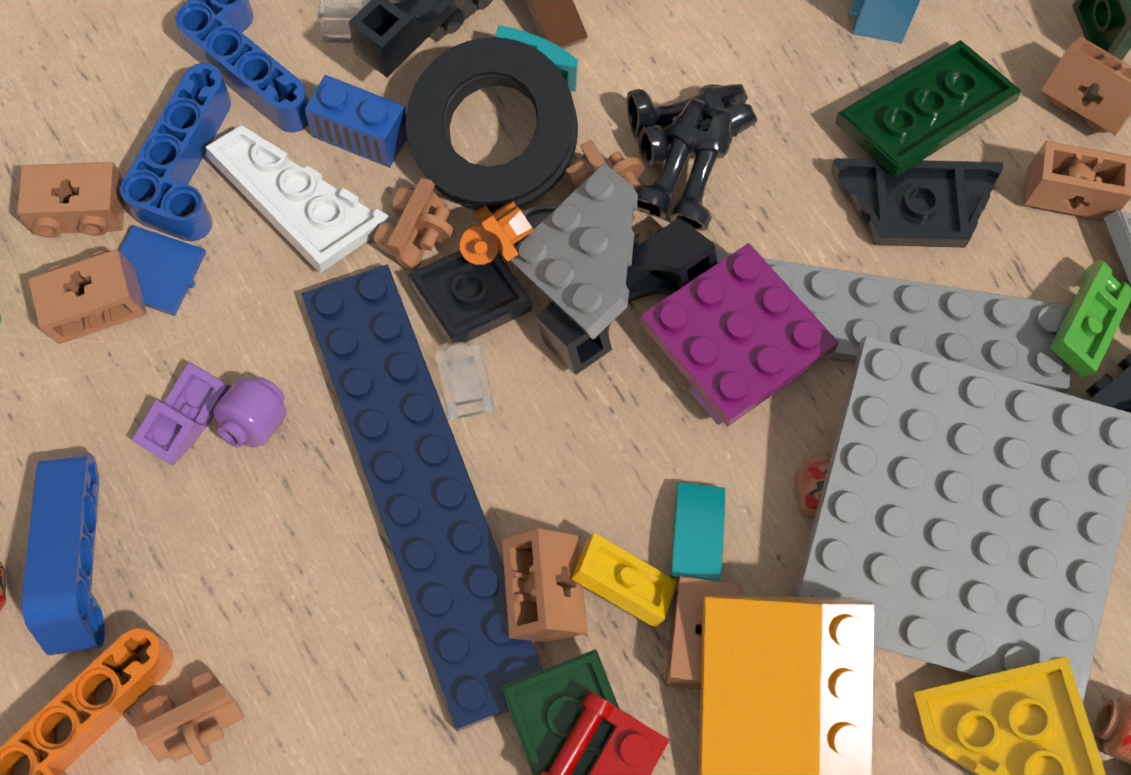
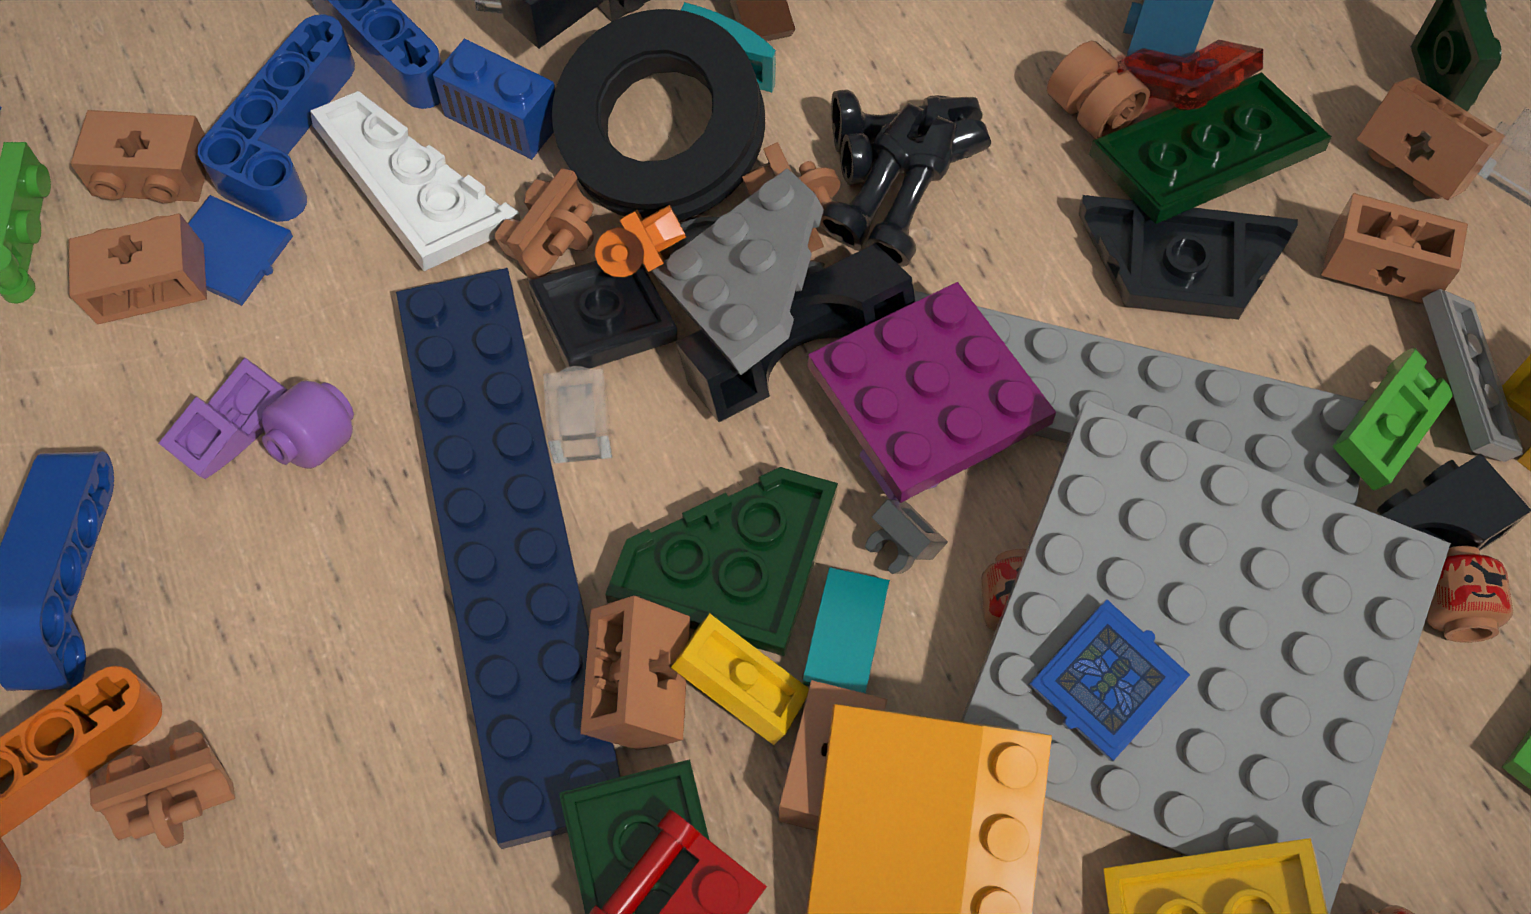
camera: 10 degrees right, 5 degrees down
(603, 484) = (734, 557): none -> dark green plate
(735, 447) = (910, 533): none -> dark grey tile
(835, 69) = (1092, 87): none -> nougat wheel
(904, 54) = (1196, 78): none -> clear red plate
(906, 552) = (1109, 680): none -> piece

